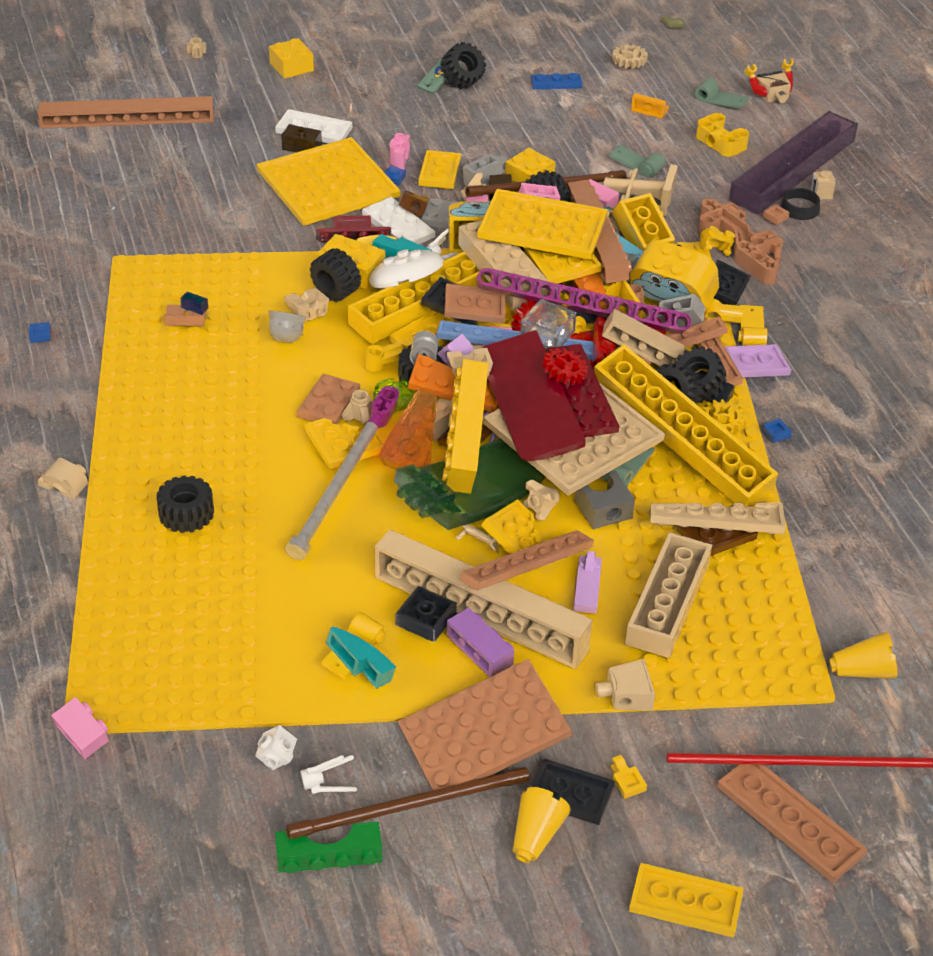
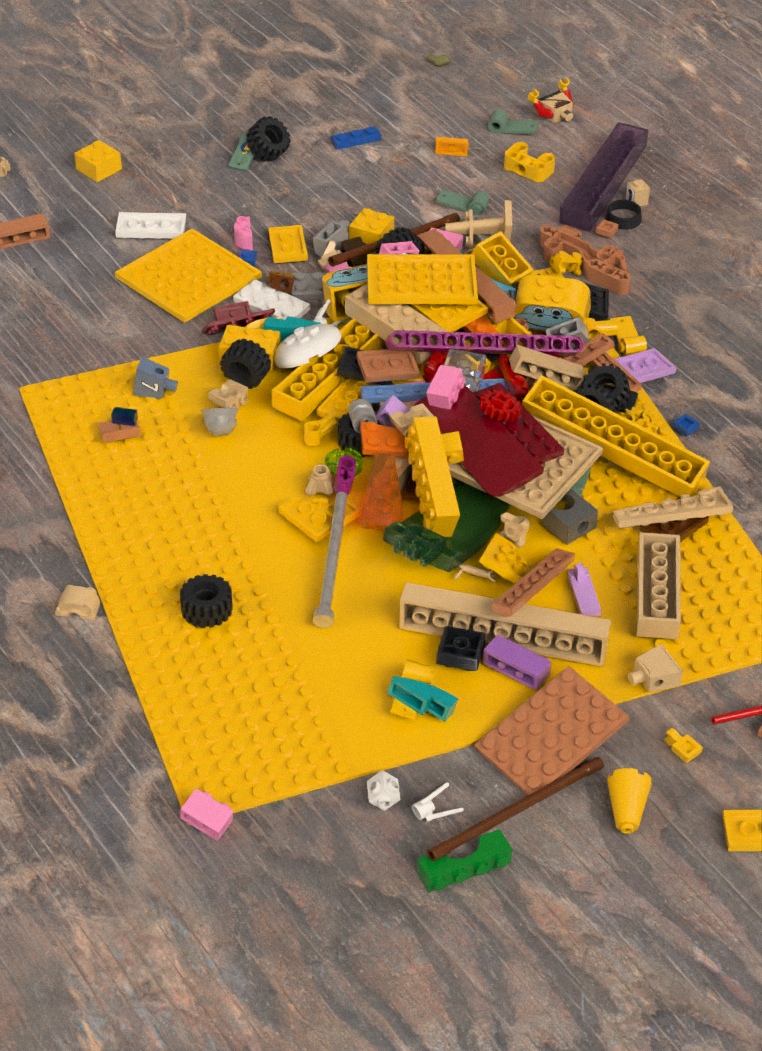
camera: 15 degrees left, 0 degrees up
(238, 272) = (153, 379): none -> sand blue torso
(300, 138) = (144, 239): dark brown brick -> none
(327, 399) = (286, 479): nougat plate -> none
(497, 399) = (452, 447): none -> yellow brick
(516, 336) = (445, 387): none -> bright pink brick
(582, 790) = (656, 762): black plate -> none
(629, 56) = (414, 101): tan gear -> none

